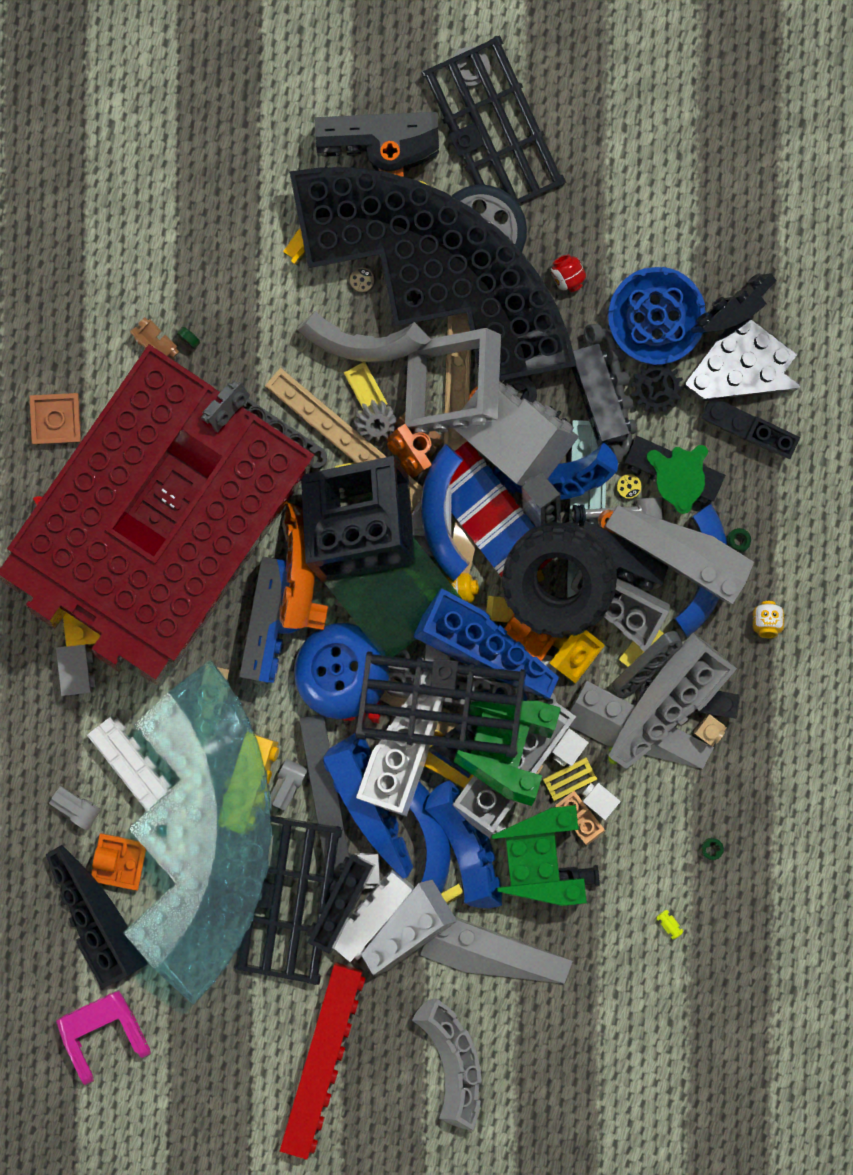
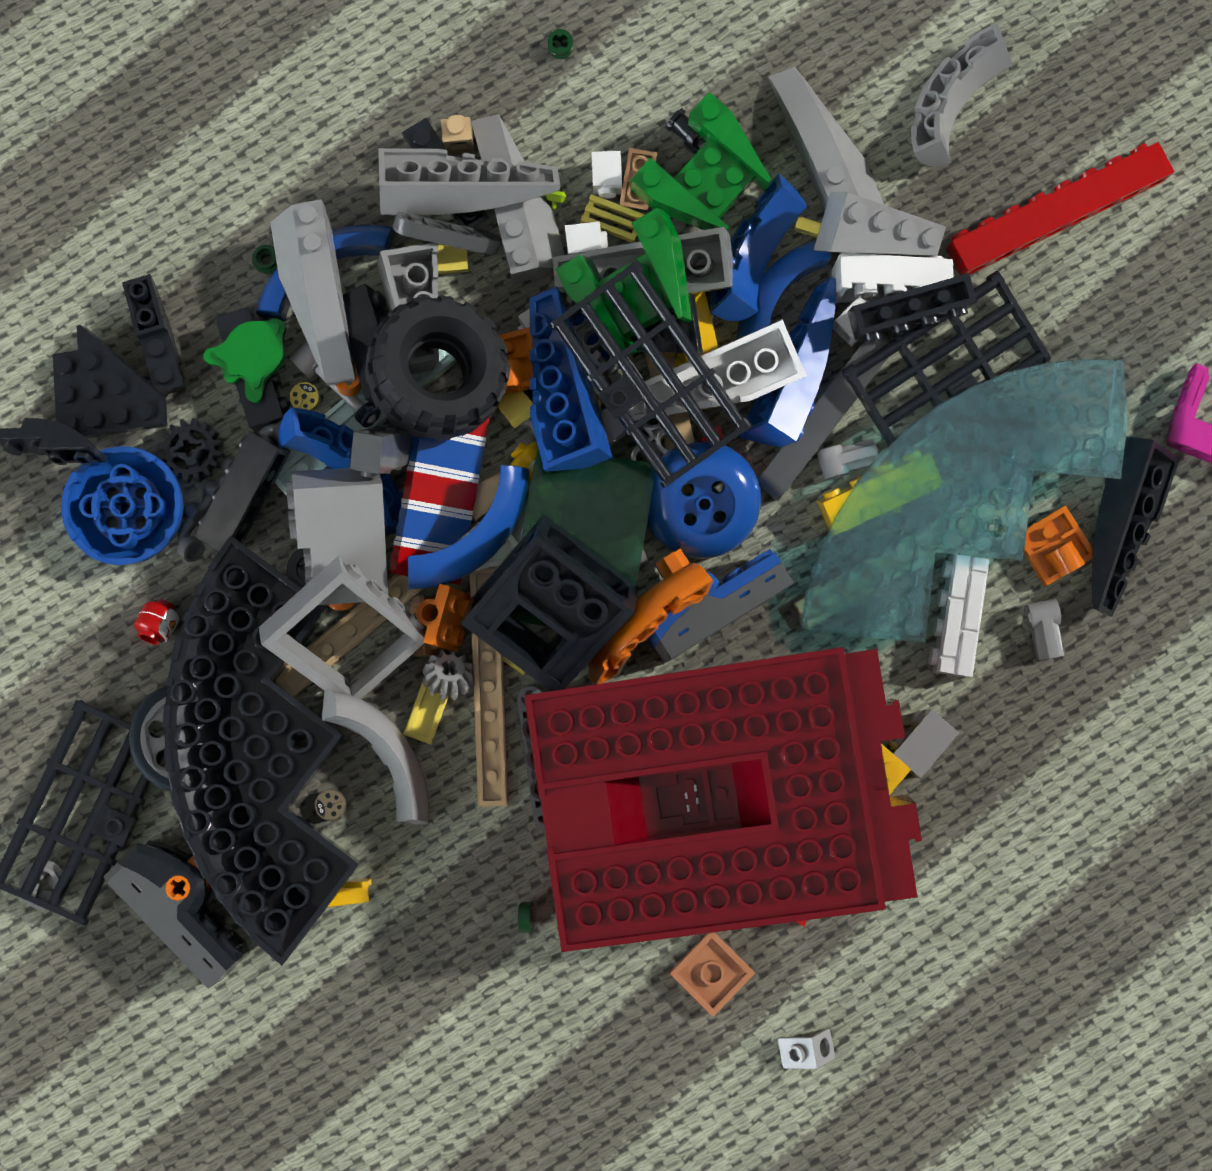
camera: 135 degrees left, 5 degrees down
(147, 334) = (552, 959): medium nougat hinge -> none
(232, 398) = (538, 823): dark grey hinge -> none
(576, 654) = (499, 306): yellow tile -> none
(670, 924) = (659, 22): neon yellow piece -> none
(768, 619) = (313, 170): head -> none

